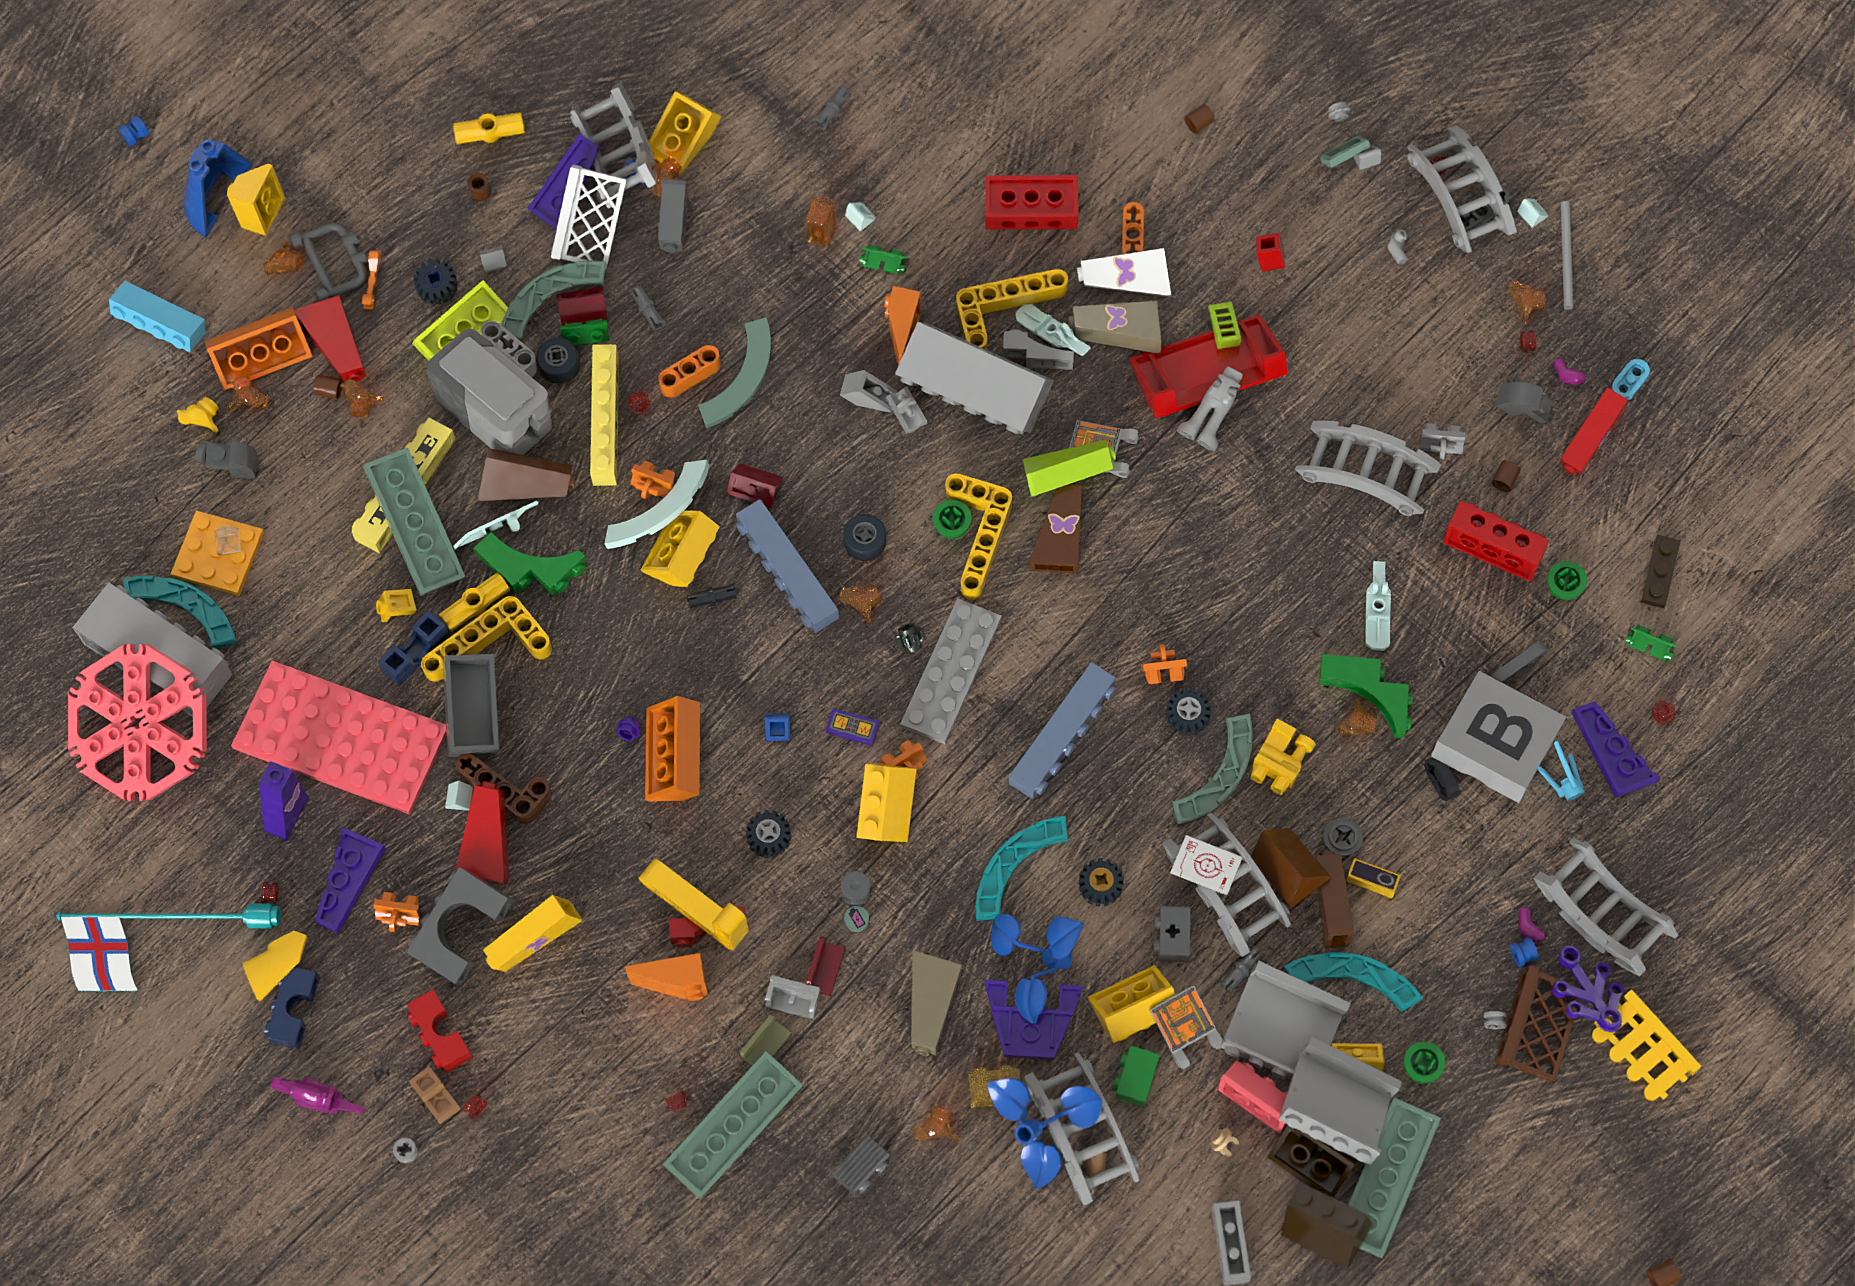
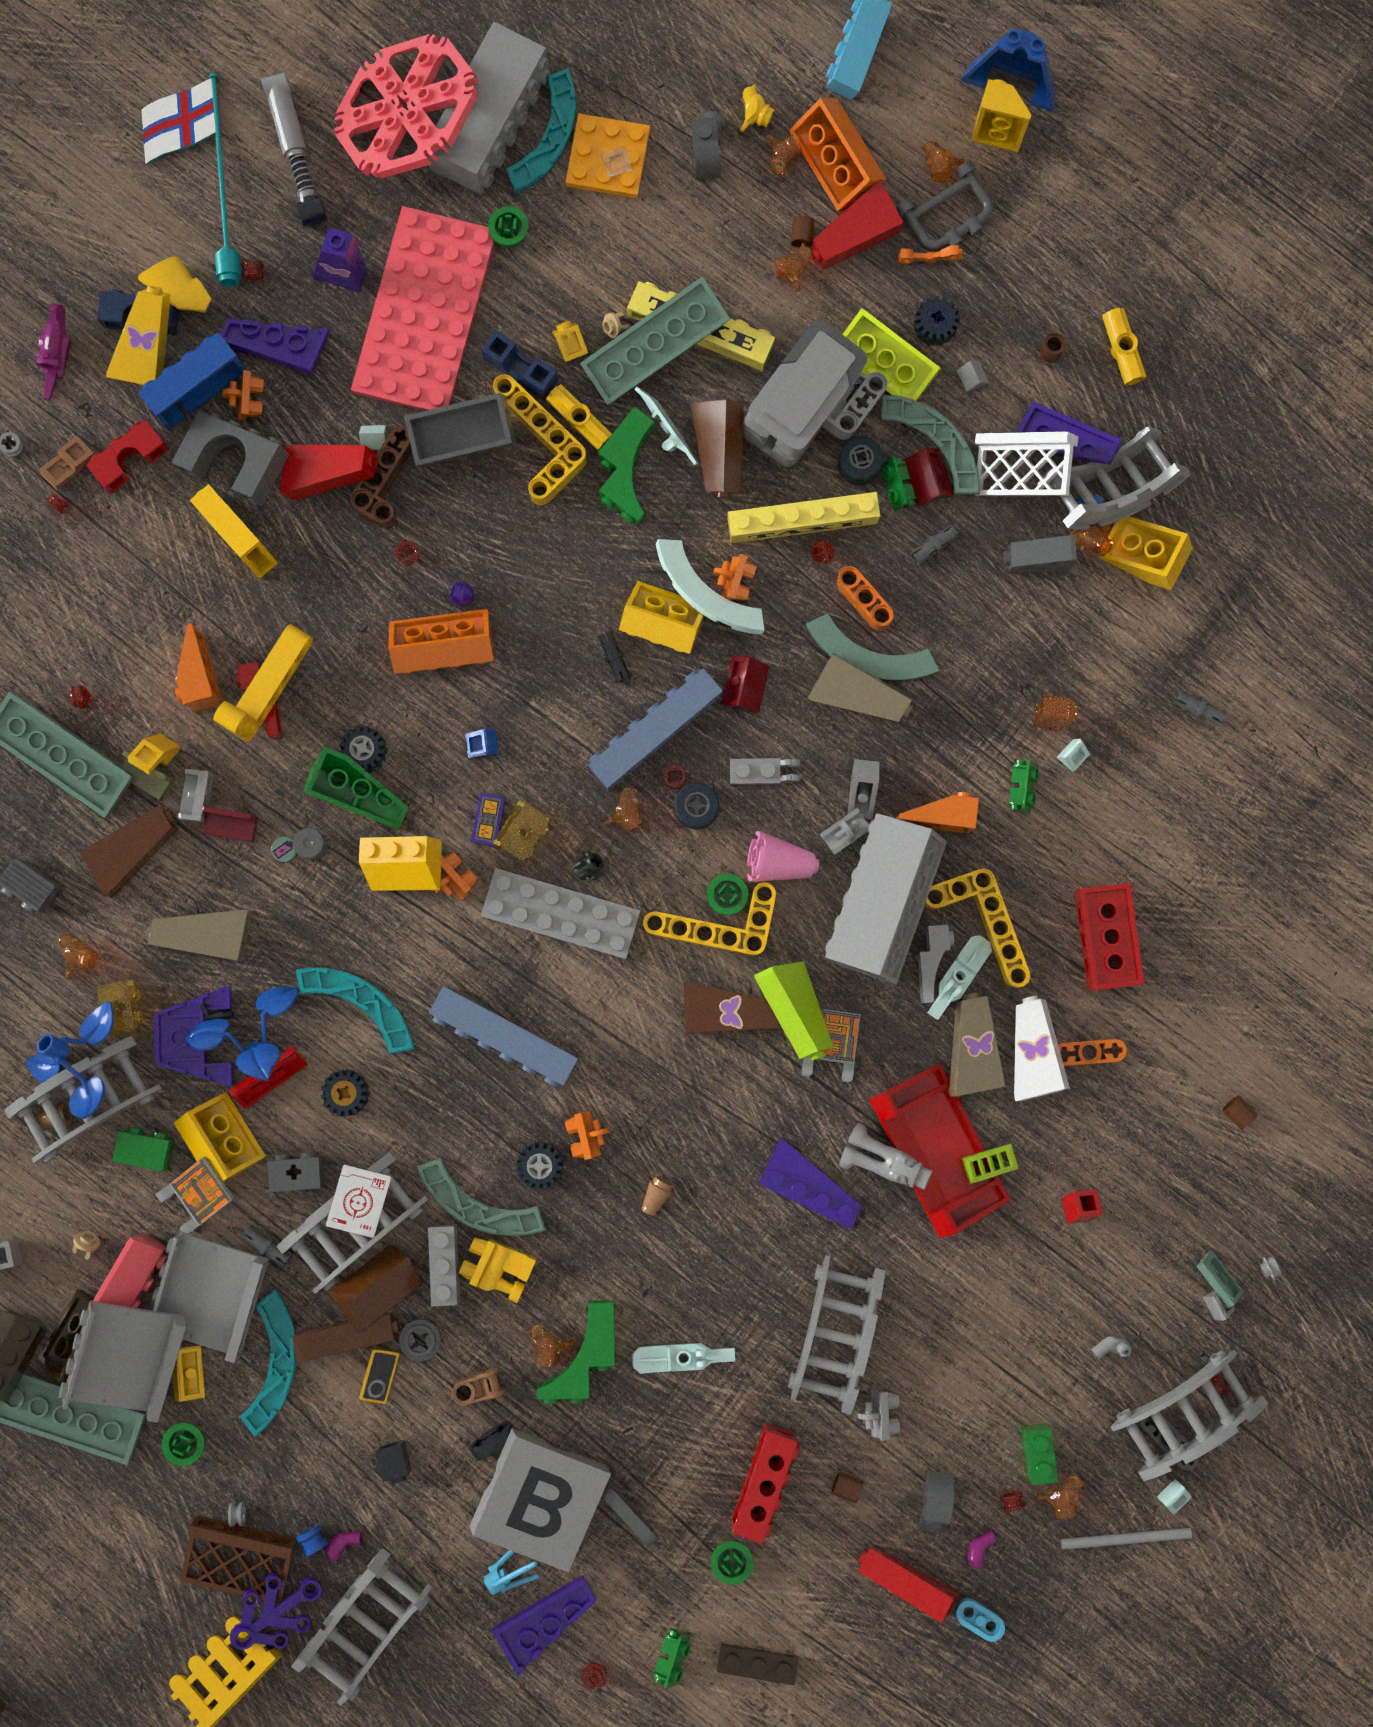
camera: 80 degrees right, 15 degrees up
(92, 851) = (293, 147): none -> piece
(272, 647) = (510, 226): none -> green piece
(326, 997) = (143, 340): none -> yellow slope
(373, 951) = (192, 380): none -> blue piece
(387, 563) = (612, 324): none -> tan plate
(582, 783) = (403, 546): none -> clear red bush
(747, 1025) = (153, 751): none -> yellow slope
(773, 389) = (855, 689): none -> dark tan slope
(802, 846) = (347, 785): none -> green wedge
(834, 548) = (674, 768): none -> clear red bush
(839, 480) = (761, 771): none -> light grey hinge
(839, 1067) = (128, 849): none -> reddish brown slope
(868, 693) = (511, 839): none -> clear yellow brick
(925, 472) = (779, 860): none -> bright pink cone
(1011, 990) = (223, 1014): none -> black piece
(1086, 963) = (253, 1089): none -> red tile
(1226, 486) = (803, 1183): none -> dark purple wing
(1226, 611) = (656, 1195): none -> medium nougat cone
(1273, 805) = (444, 1265): none -> light grey brick
(1391, 783) = (479, 1387): none -> medium nougat piece
(1455, 870) = (393, 1462): none -> black brick
(1487, 313) = (1039, 1454): none -> green brick

